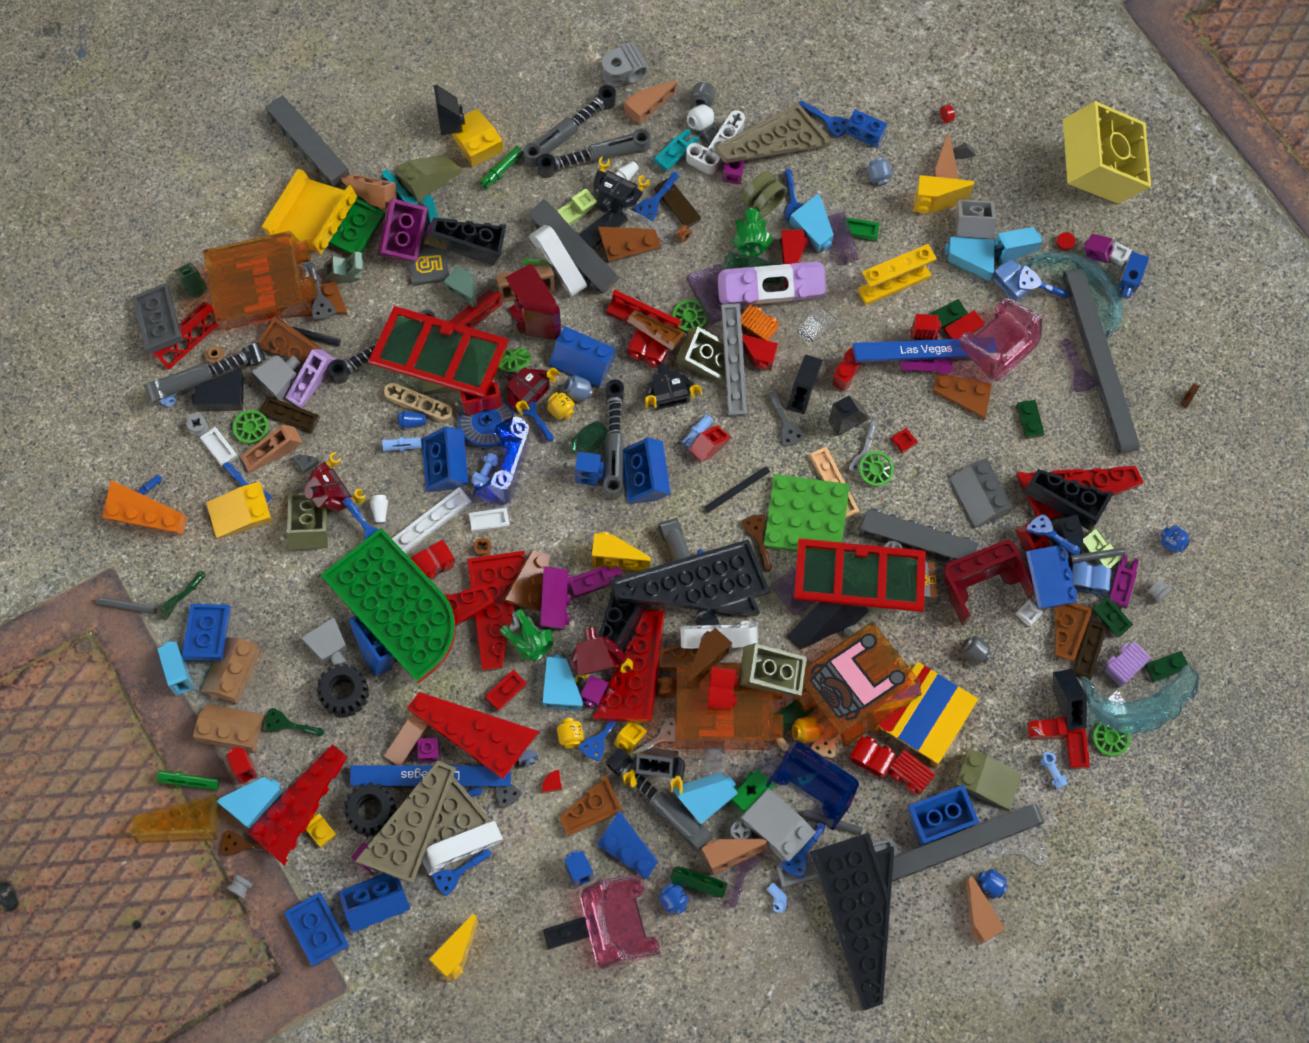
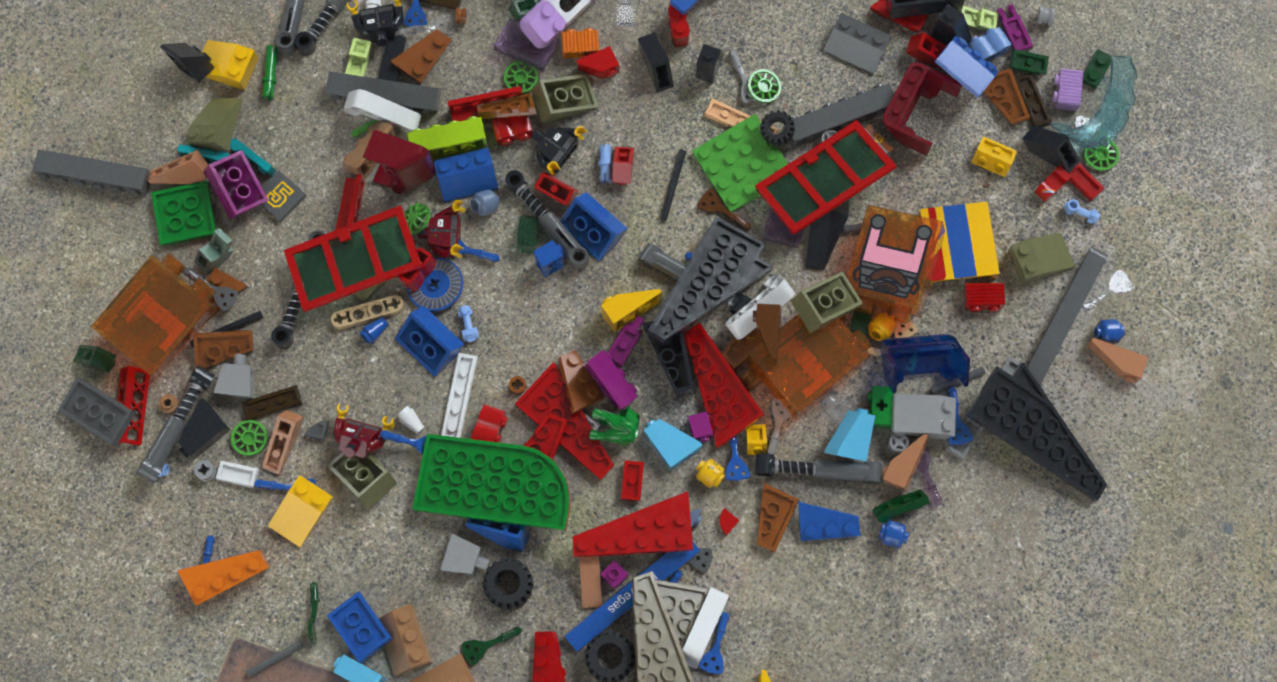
camera: 35 degrees left, 5 degrees up
(309, 211) = (145, 227): yellow panel -> none
(310, 377) = (263, 360): lavender slope -> none
(401, 444) = (383, 355): light blue pin -> none
(462, 285) = (321, 191): sand green slope -> none
(467, 238) = (296, 150): black wedge -> none
(489, 520) = (503, 360): white tile -> none
(502, 485) = (472, 280): clear blue windscreen -> none
(560, 406) = (483, 226): yellow head -> none
(566, 933) = (840, 618): black tile -> none
(578, 868) = (806, 569): blue brick -> none
(591, 319) = (451, 138): none -> lime brick
(597, 655) = (683, 397): dark red torso -> none
(616, 921) = (867, 587): clear pink windscreen -> none
(640, 420) = (556, 189): none -> red brick
(657, 763) = (799, 441): black torso -> none
(722, 689) = (801, 346): red brick -> none
(734, 359) = (587, 84): light grey tile -> none
(780, 898) = (968, 469): light blue arm -> none
(787, 426) = (669, 105): dark grey piece -> none
(860, 517) = (777, 117): none -> black tyre
(872, 757) = (946, 308): red brick -> none
(904, 440) = (765, 48): red tile -> none
(942, 815) = (1035, 310): blue slope -> none
(976, 650) = (953, 166): dark grey head -> none
(1017, 669) = (994, 156): none -> yellow bracket
(1029, 613) = (966, 107): white tile -> none
(1048, 530) = (935, 32): blue piece -> none
(1097, 555) = (984, 20): dark grey bar -> none

